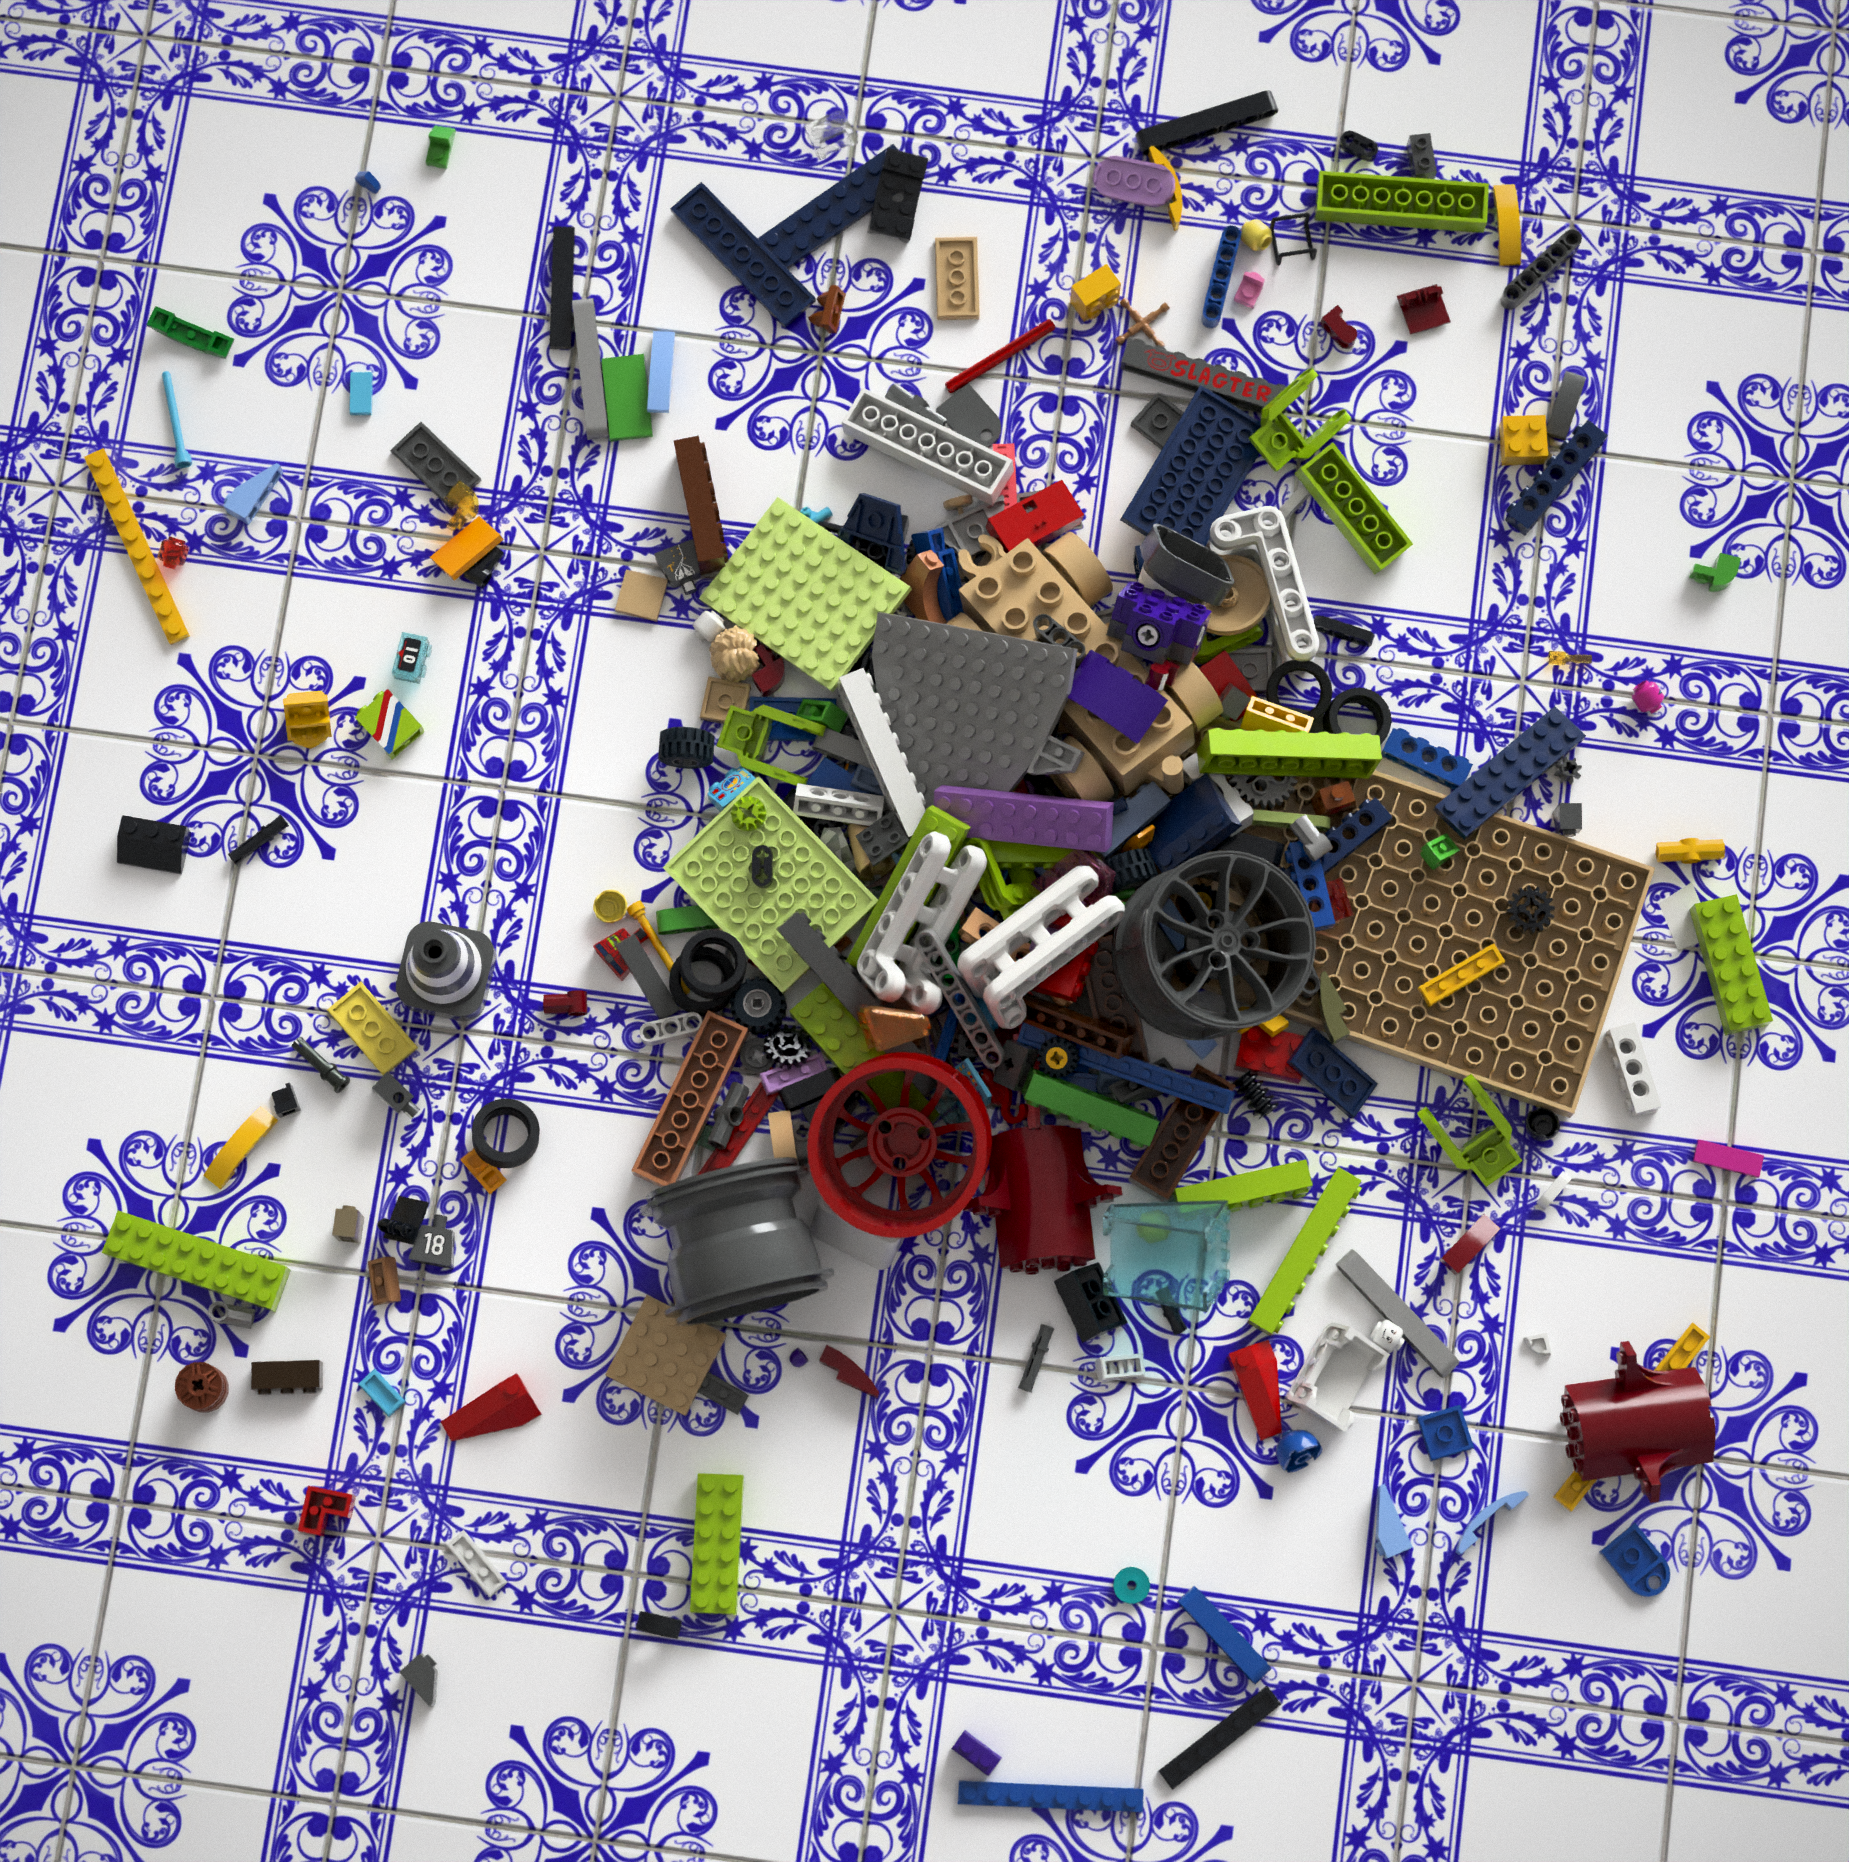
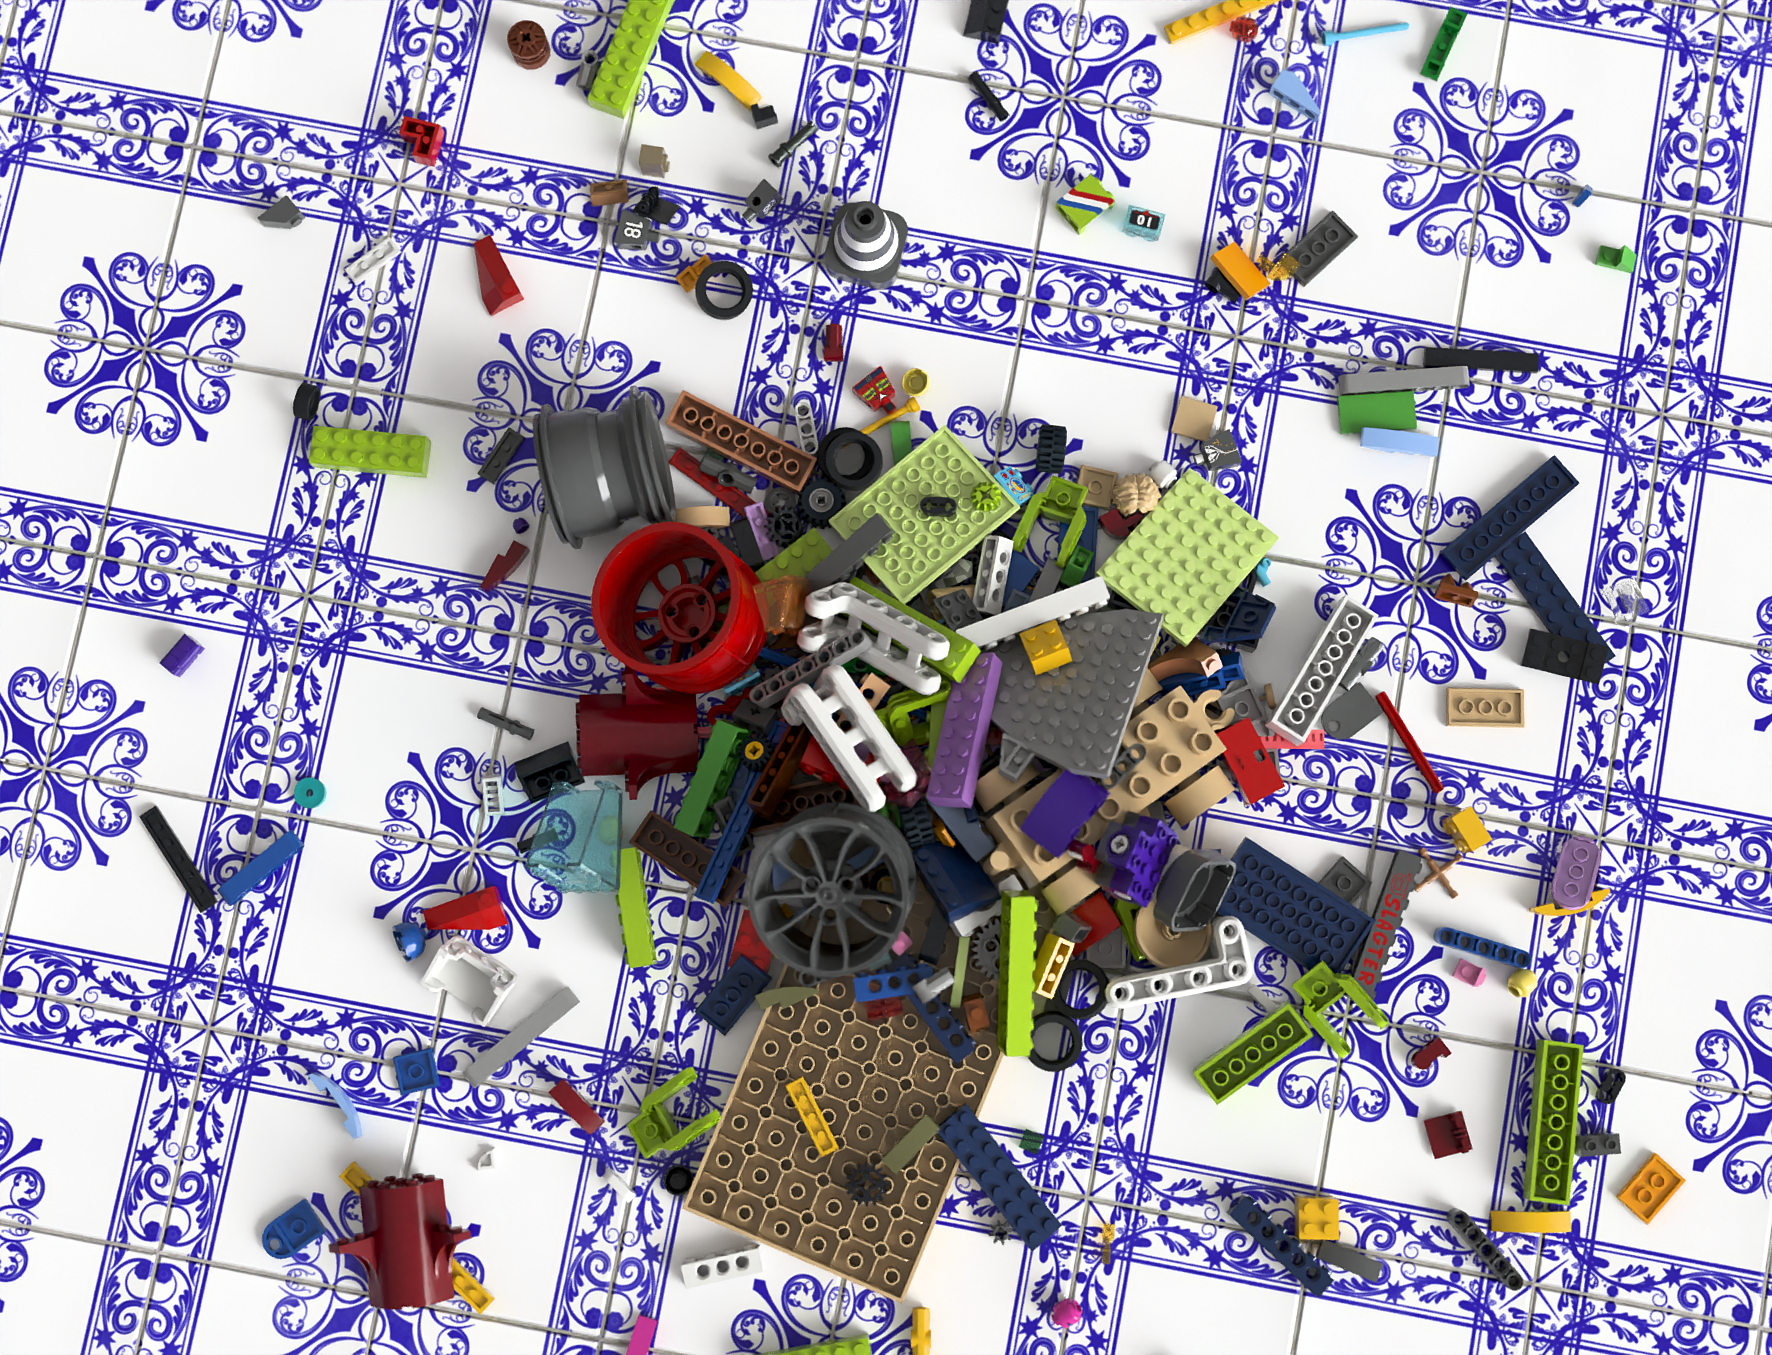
camera: 95 degrees right, 5 degrees up
(287, 1376) = (534, 113): dark brown brick -> none
(307, 718) = (1093, 135): yellow piece -> none
(361, 393) = (1385, 187): medium azure tile -> none
(372, 1028) = (822, 186): light yellow tile -> none
(382, 1392) = (517, 189): medium azure tile -> none
(647, 977) = (851, 409): dark grey tile -> none
(665, 1358) = (513, 412): tan plate -> none
(699, 500) = (1273, 469): reddish brown brick -> none
(923, 736) = (1045, 647): none -> yellow brick
(1050, 1796) = (144, 716): blue plate -> none
(1207, 122) = (1634, 945): black beam -> none
(1255, 1094) = (719, 927): black piece -> none
(1278, 257) = (1505, 1033): black piece -> none
(1304, 1251) = (580, 959): lime brick -> none
(1343, 631) = (1139, 1035): black beam -> none
(1387, 1336) = (500, 1026): white head -> none
(1389, 1529) = (333, 1016): light blue slope -> none
(1414, 762) = (1025, 1073): blue brick -> none
(1439, 851) = (925, 1104): bright green slope -> none
(1462, 105) = (1650, 1188): none -> light orange tile
(1466, 743) = (1031, 1141): none -> clear green tile
(1483, 864) = (910, 1144): none -> olive slope
(1568, 818) = (951, 1227): dark grey slope -> none
(1678, 916) = (863, 1322): white sticker -> none

